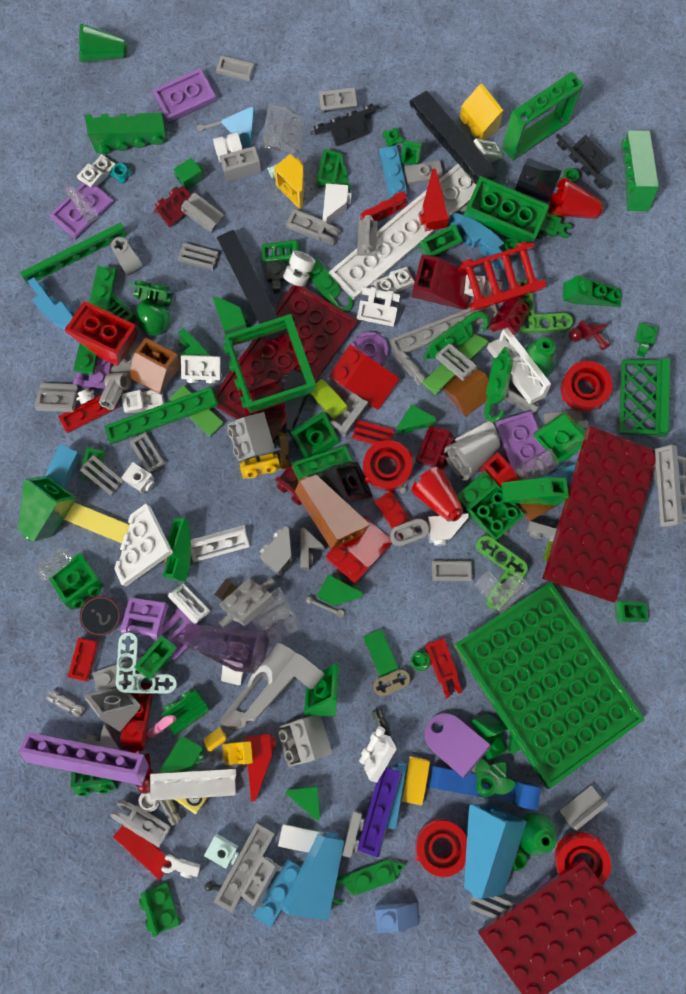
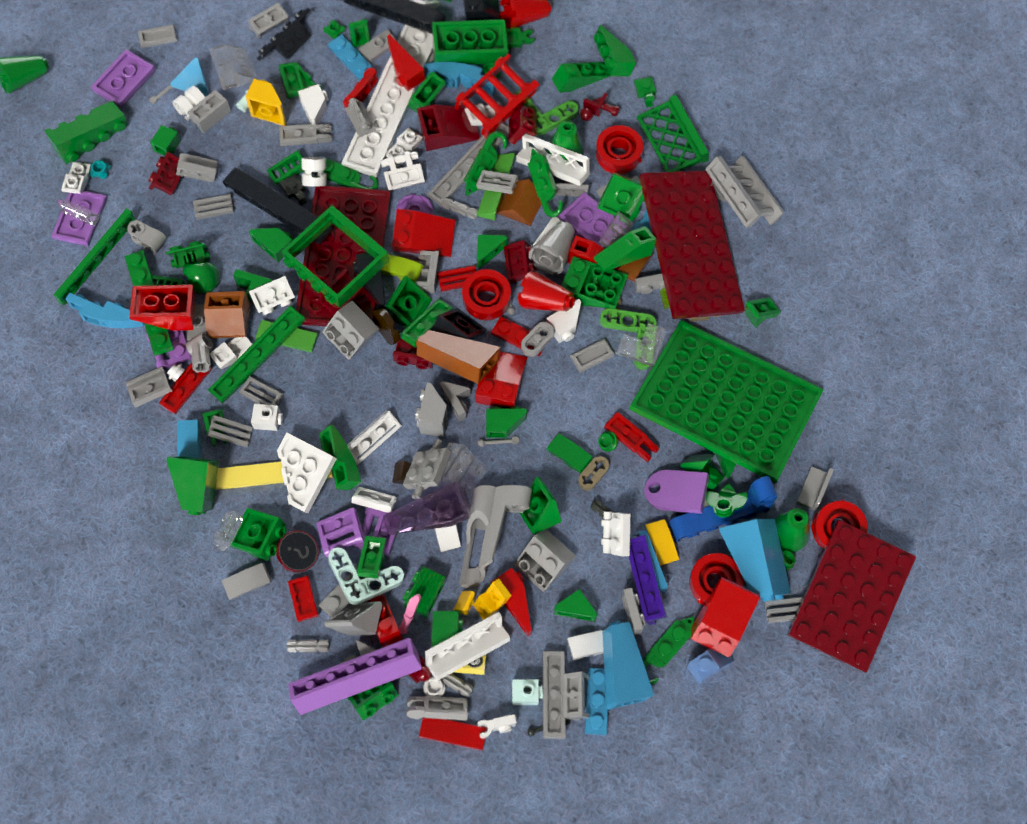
camera: 30 degrees left, 10 degrees down
(45, 618) = (246, 581): none -> light grey slope
(159, 909) = (498, 774): green bracket -> none
(251, 468) = (376, 349): yellow hinge -> none
(427, 889) = (724, 617): none -> red slope
(635, 287) = (615, 55): none -> green slope

